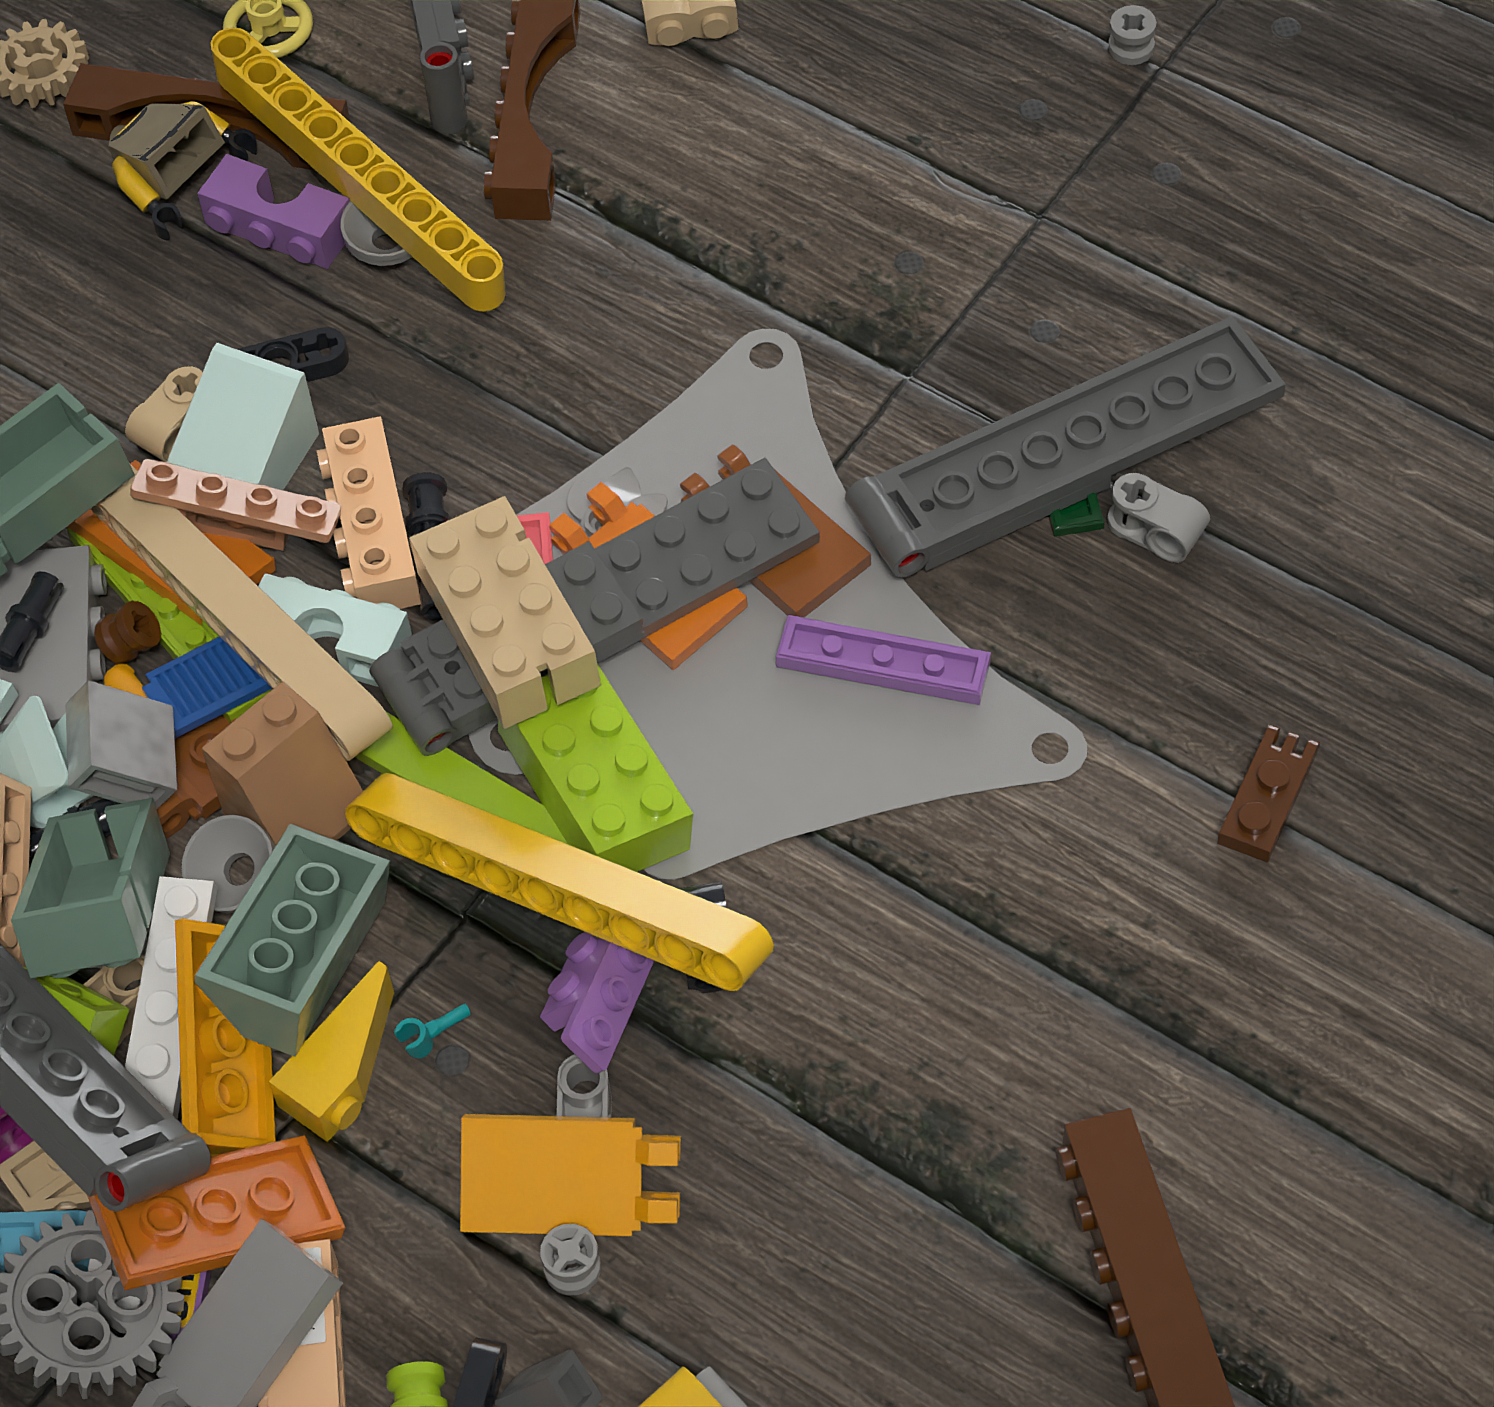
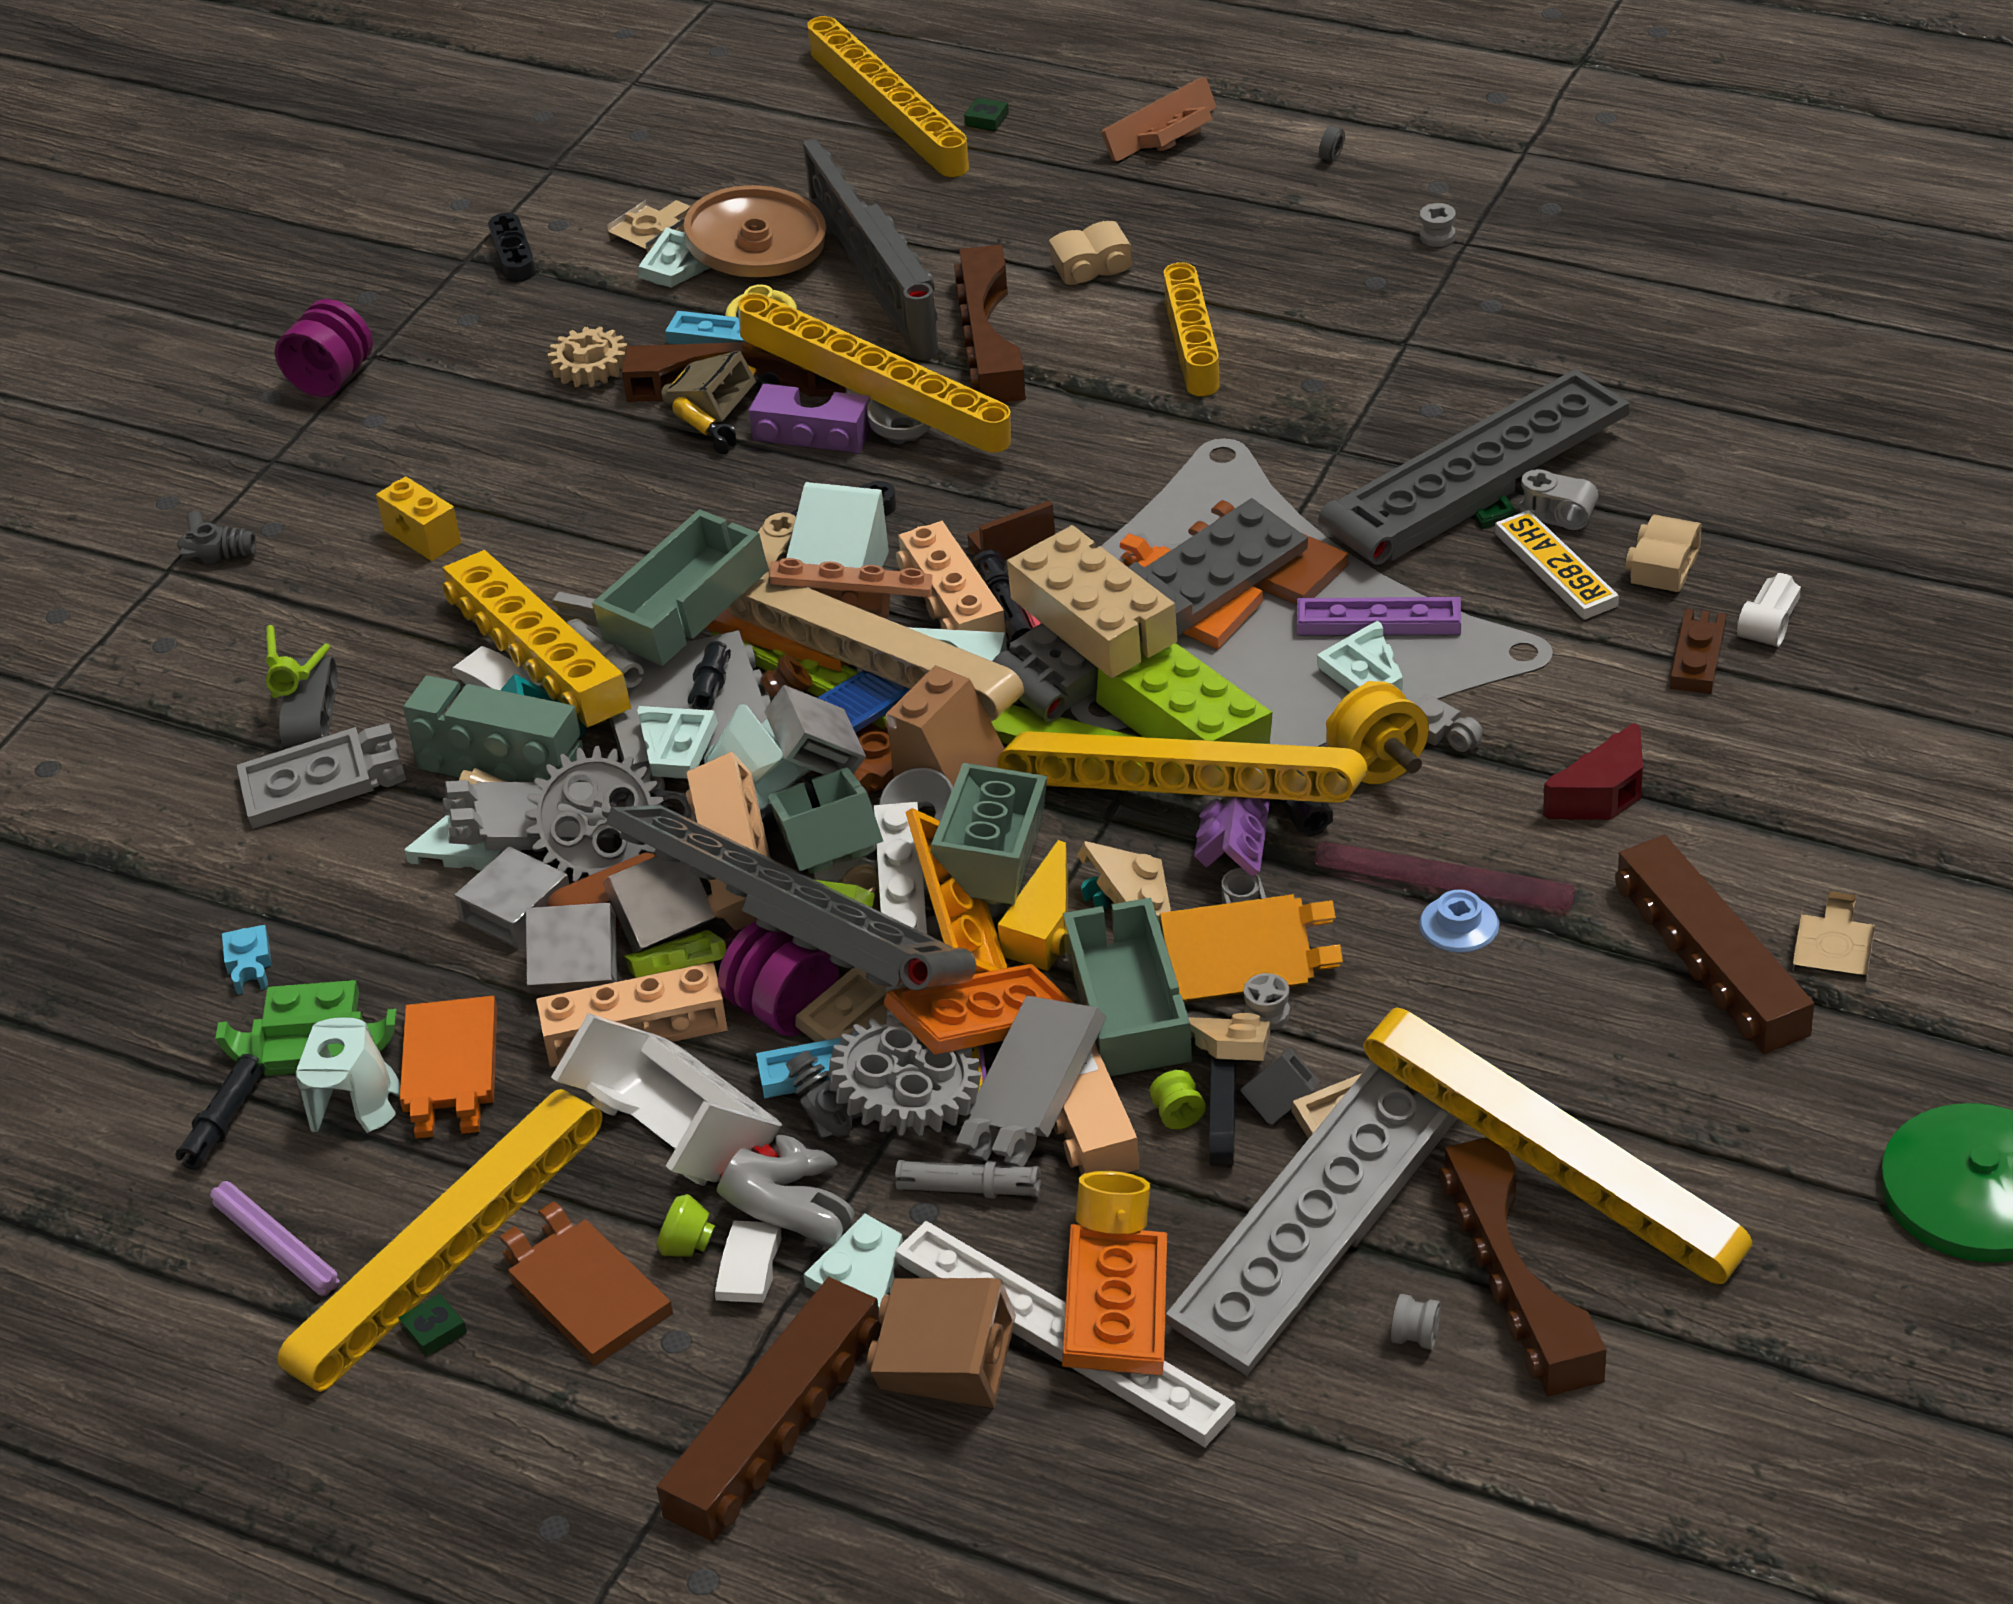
camera: 10 degrees left, 15 degrees down
(180, 43) = (702, 328): none -> medium azure plate
(398, 1213) = (1130, 985): none -> sand green piece
(458, 1038) = (1128, 875): none -> tan wing
(471, 442) = (1014, 532): none -> reddish brown panel
(508, 1314) = (1235, 1038): none -> tan wing
(777, 152) = (1191, 329): none -> yellow beam
(817, 869) = (1381, 728): none -> yellow wheel
(842, 737) = (1361, 659): none -> light aqua wing
(850, 1098) = (1445, 875): none -> clear pink axle
(851, 1193) = (1459, 922): none -> light blue piece
(907, 842) = (1446, 722): none -> light grey plate
(1082, 988) = (1599, 782): none -> dark red slope
(1128, 618) = (1556, 565): none -> tile
(1266, 631) = (1664, 552): none -> tan brick
(1307, 1304) = (1835, 940): none -> tan piece
(1369, 760) = (1769, 614): none -> white piece

